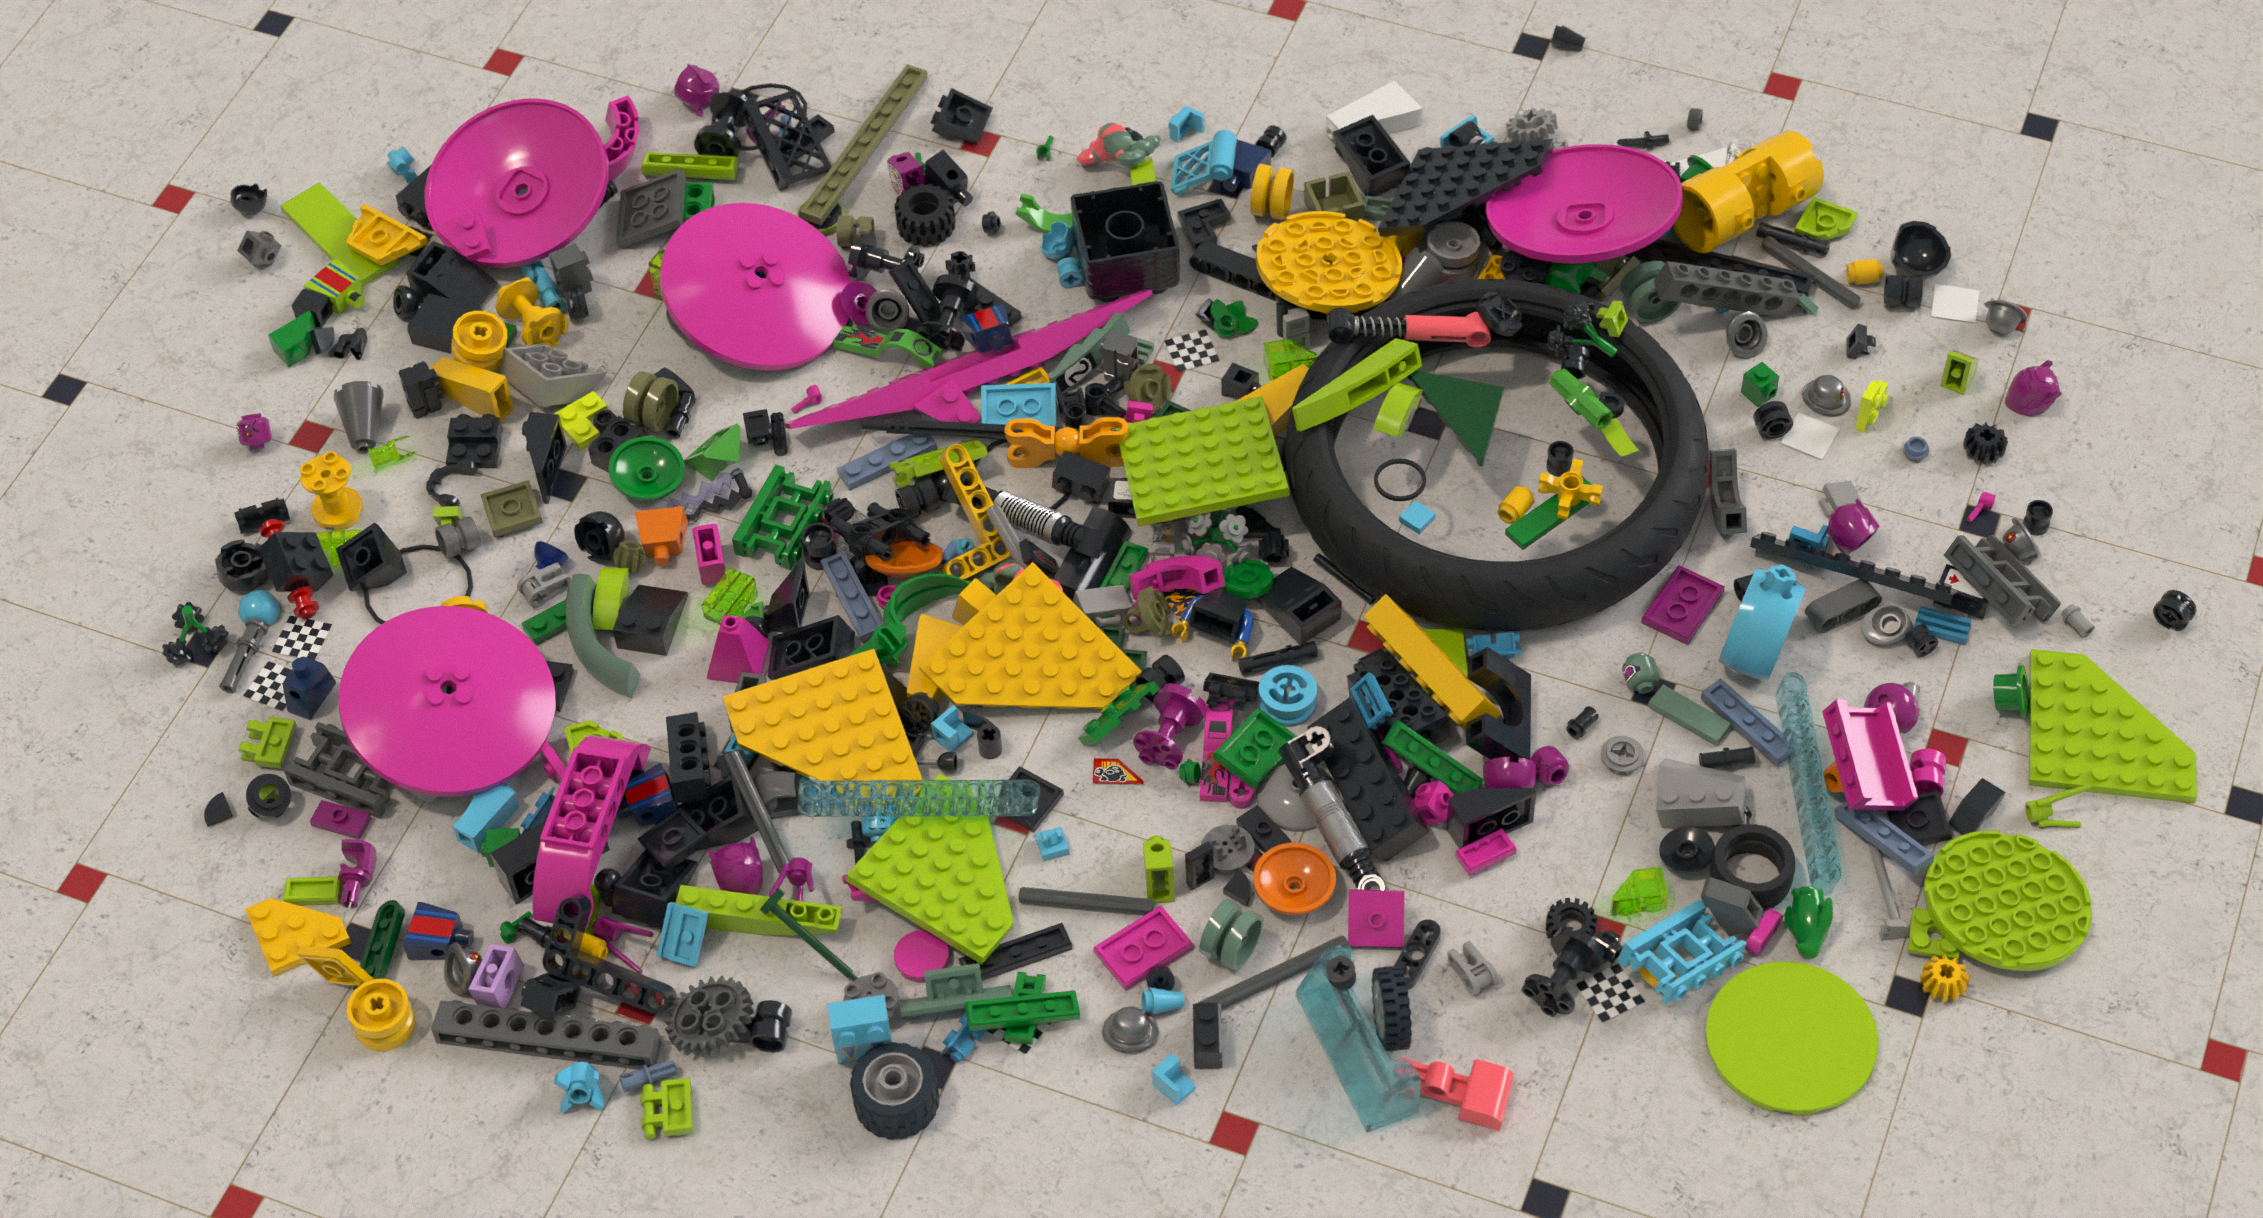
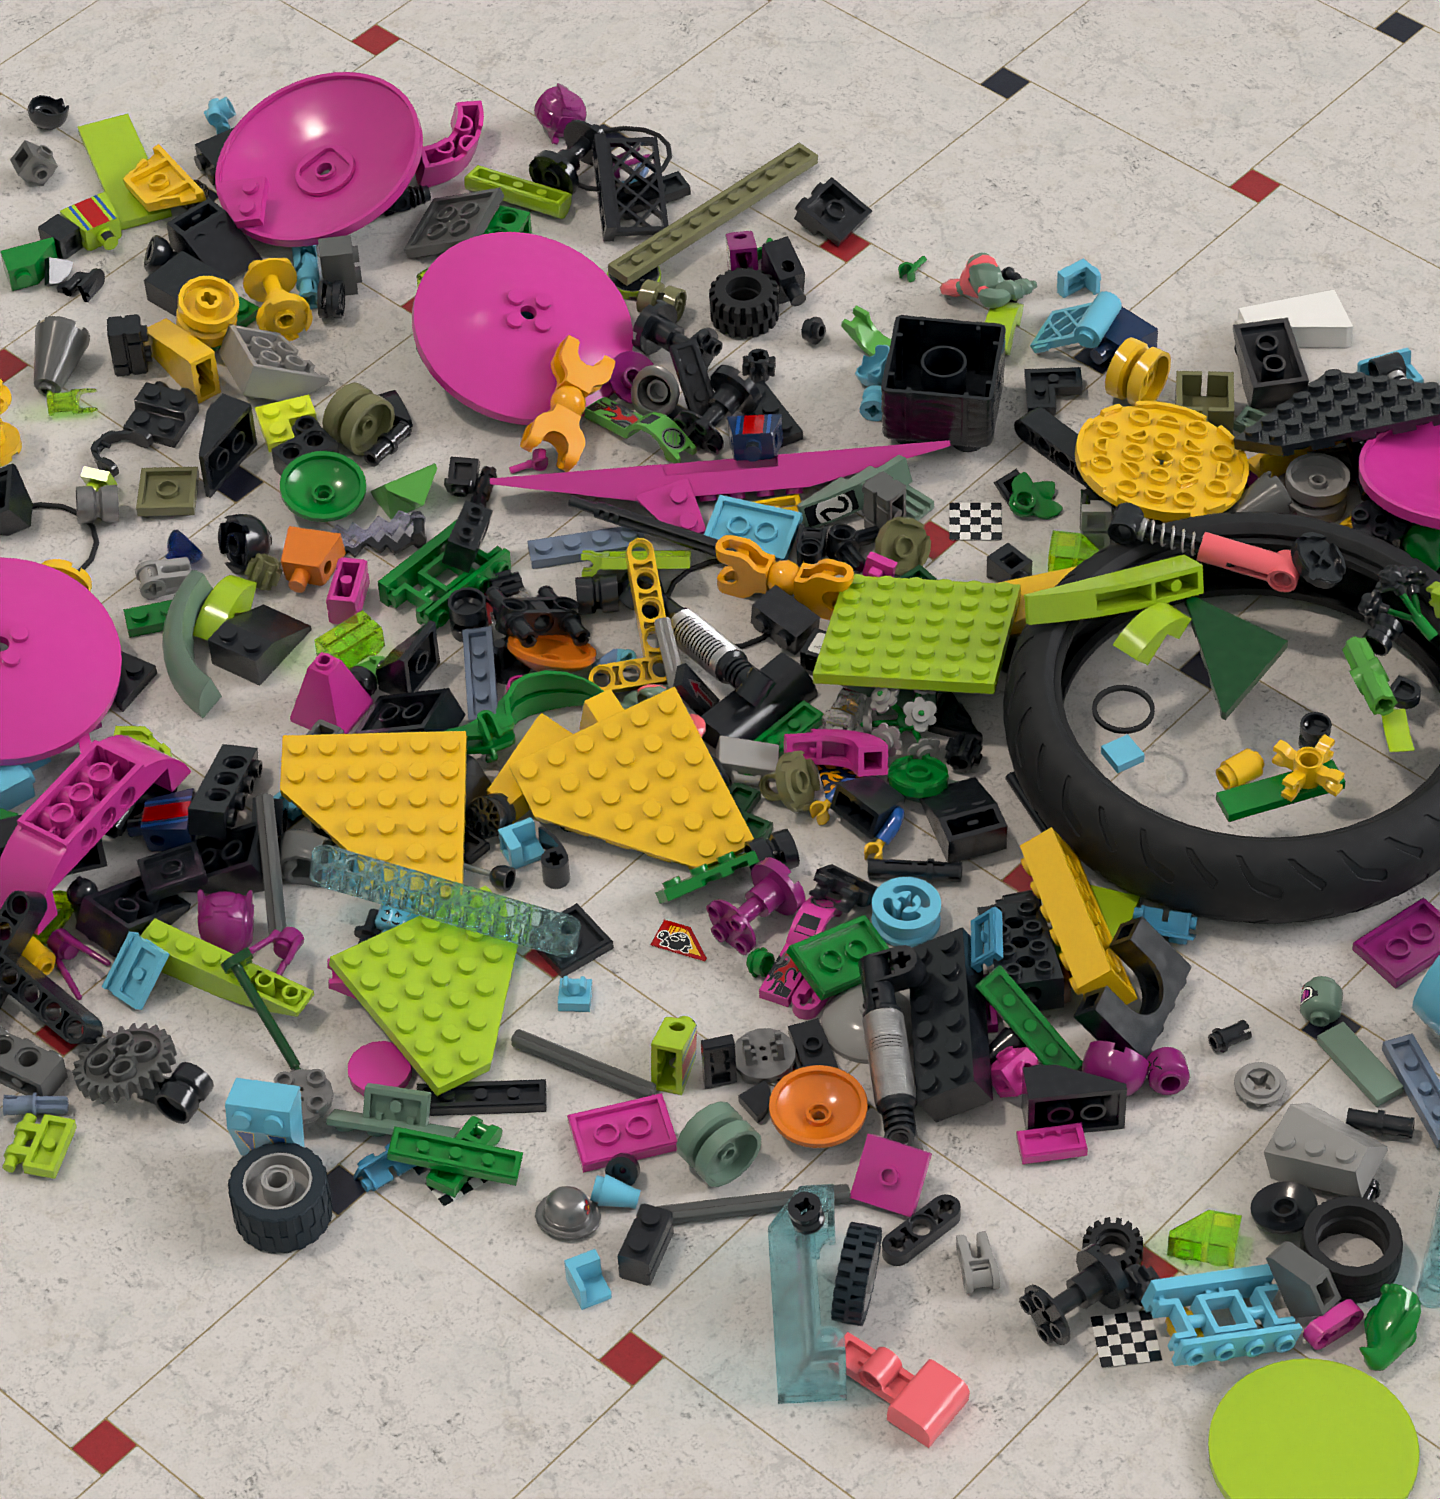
camera: 20 degrees right, 5 degrees down
(793, 479) = (467, 536): none -> black brick
(824, 359) = (567, 403): none -> light orange piece
(1272, 139) = (1169, 319): black wheel -> none

